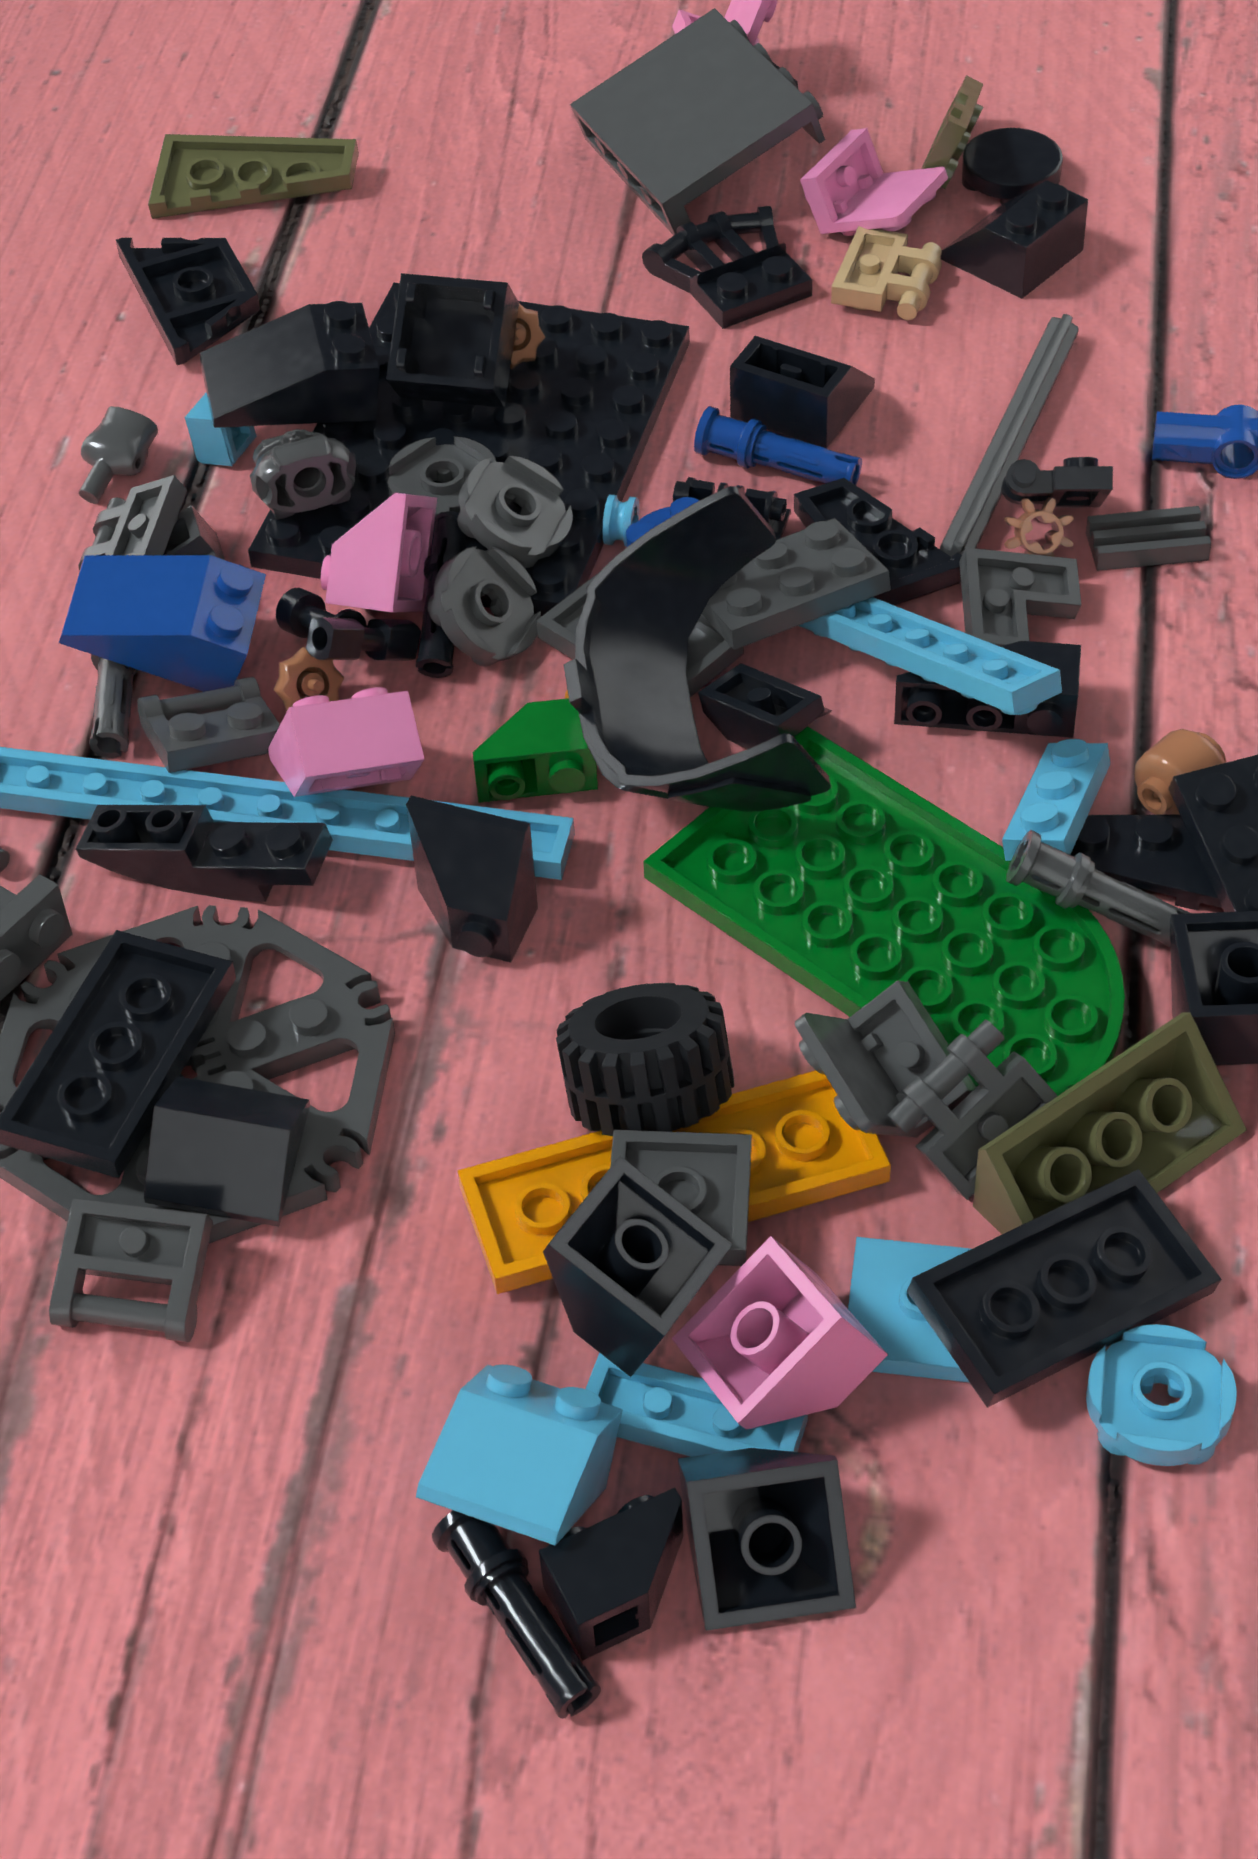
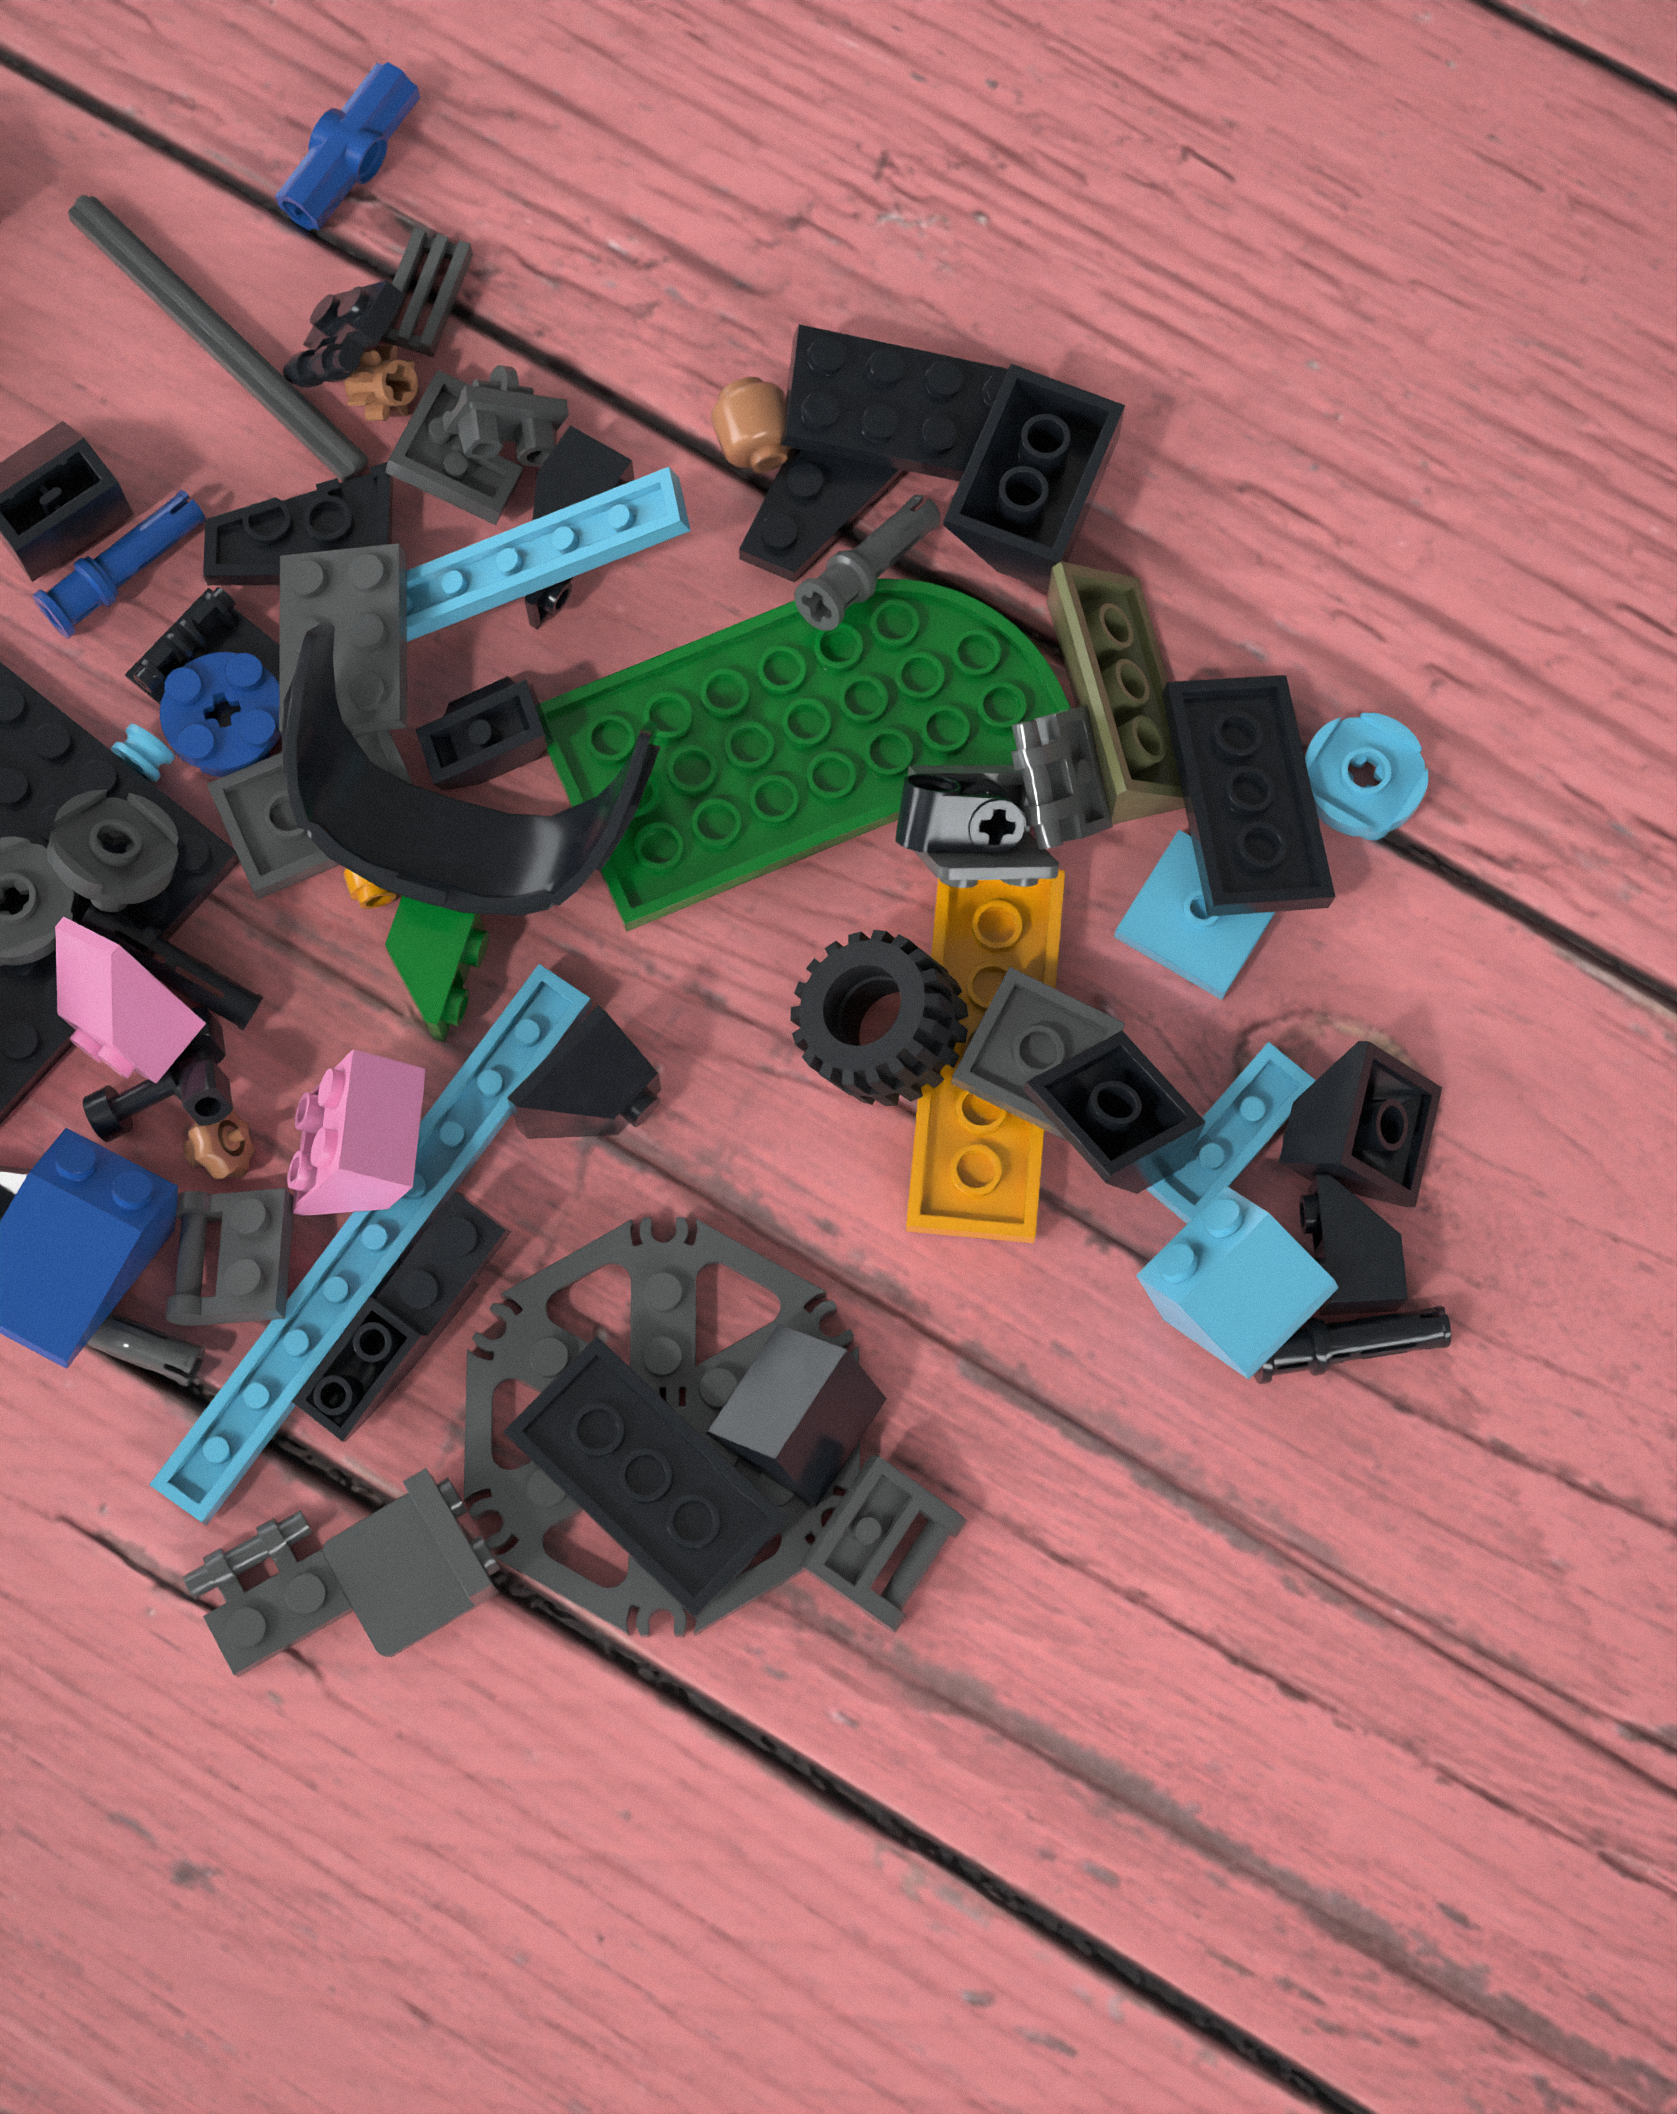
camera: 70 degrees left, 25 degrees up
(460, 612) = (188, 924): dark grey plate -> none
(777, 1341) = (1213, 1034): bright pink slope -> none
(872, 1020) = (947, 813): none -> black piece
(1059, 795) = (742, 545): medium azure plate -> none
(1060, 600) = (506, 412): none -> dark grey hips

